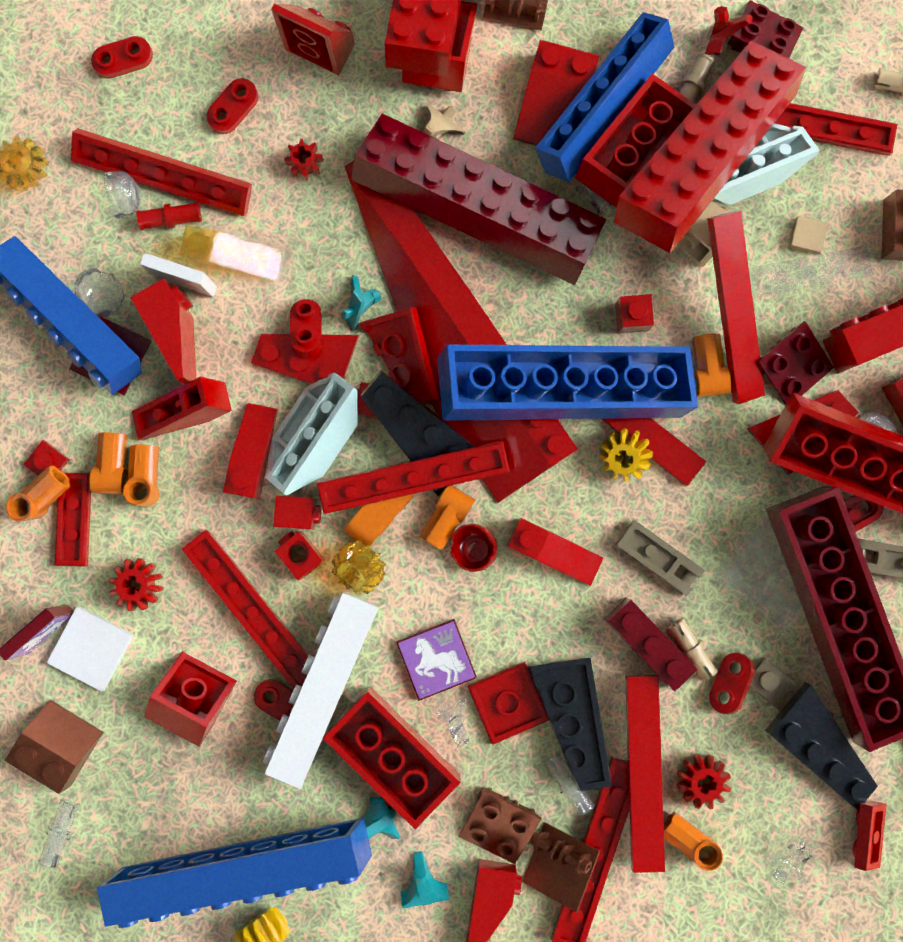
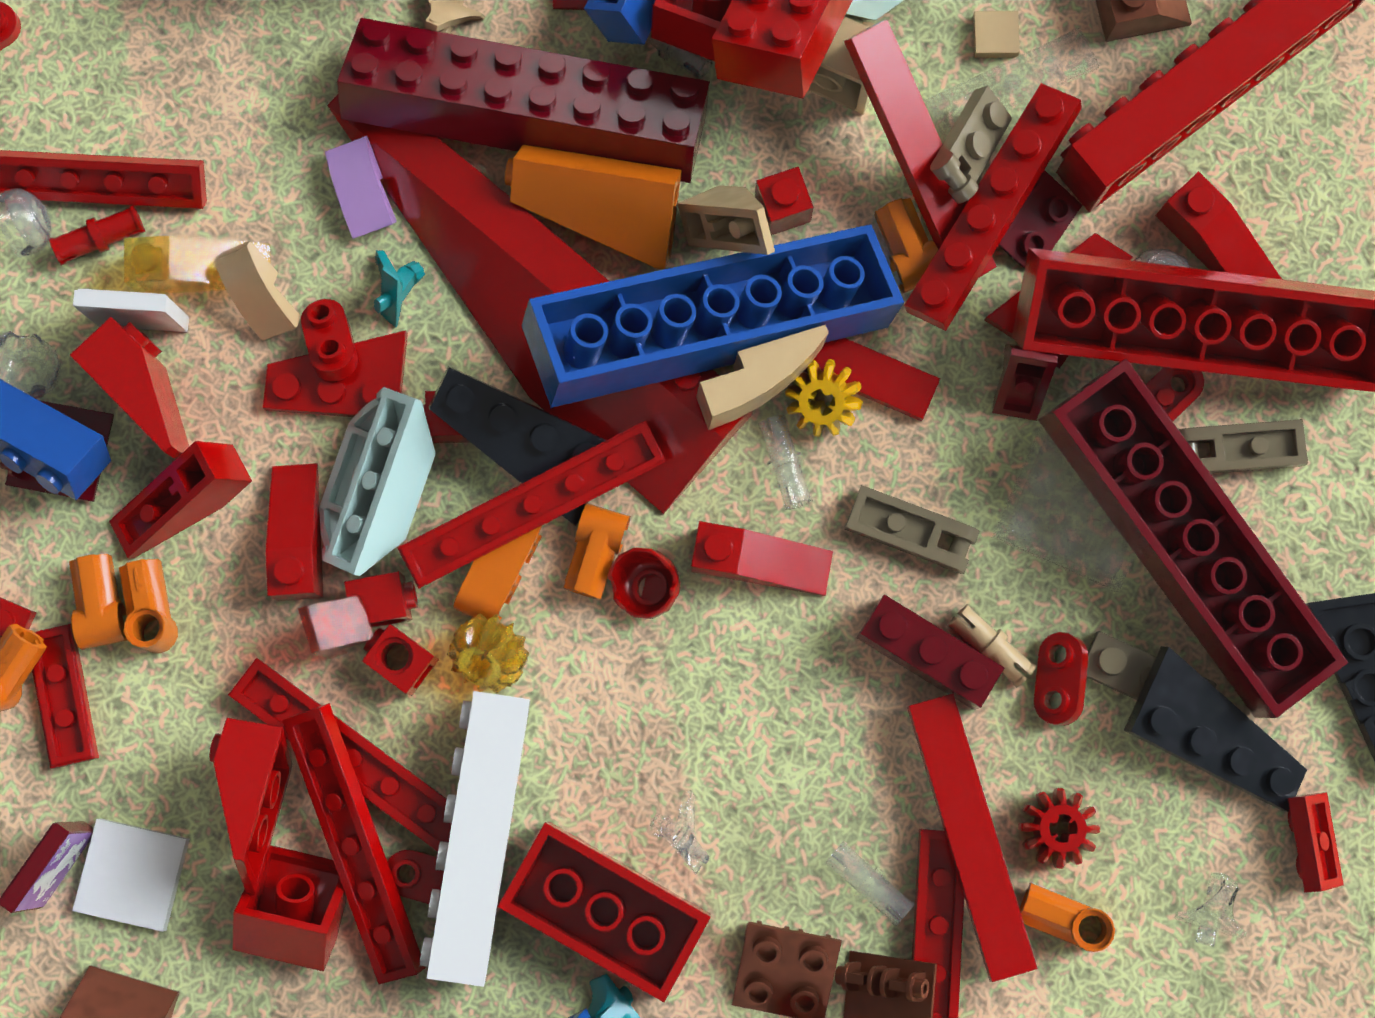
camera: 15 degrees left, 5 degrees down
(142, 575) = (165, 779): red gear -> none
(181, 613) = (252, 780): none -> red slope
(235, 106) = (151, 61): red plate -> none
(239, 669) = (354, 844): none -> red plate
(262, 279) = (250, 285): none -> tan slope
(263, 524) = (335, 626): none -> clear red slope
(311, 161) = (279, 106): red gear -> none
(351, 229) = (359, 187): none -> lavender slope
(403, 349) = (474, 335): red wing -> none
(436, 659) = (633, 757): tile -> none
(508, 703) = (752, 792): red tile -> none
(511, 280) = (601, 198): none -> orange slope
(573, 711) = (848, 780): black wing -> none
(586, 432) = (758, 376): none -> tan slope
(587, 490) = (785, 462): none -> clear pin
(594, 319) = (726, 221): none -> tan slope
(762, 480) = (1023, 382): none -> dark red slope
(772, 309) = (971, 144): none -> dark tan plate
(776, 356) = (993, 206): none -> red plate

